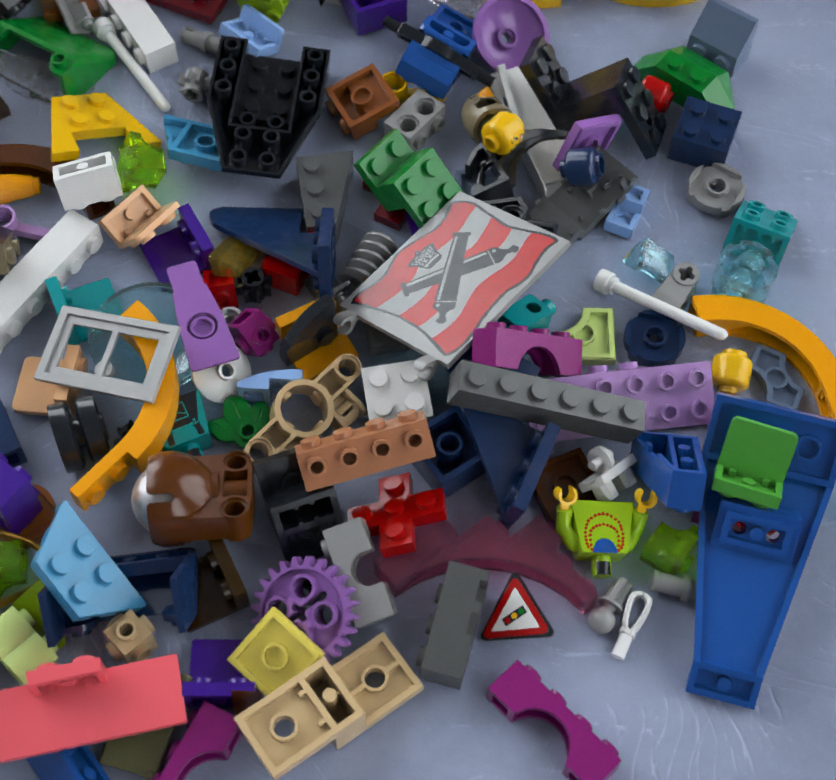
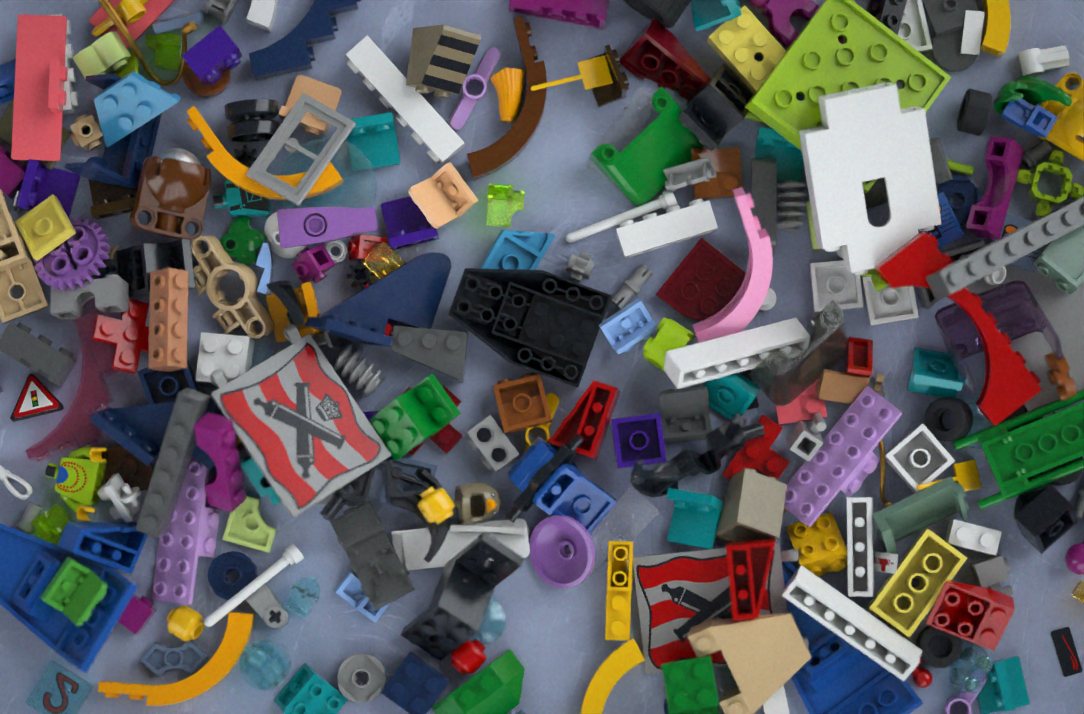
camera: 105 degrees right, 25 degrees up
(87, 181) = (478, 158): white brick -> none
(90, 118) = (564, 171): yellow wing -> none
(360, 41) = (589, 419): none -> red wedge
(582, 166) = (386, 561): dark blue head -> none
(589, 134) = (416, 576): medium lavender tile -> none
(602, 618) = (18, 461): light grey axle -> none

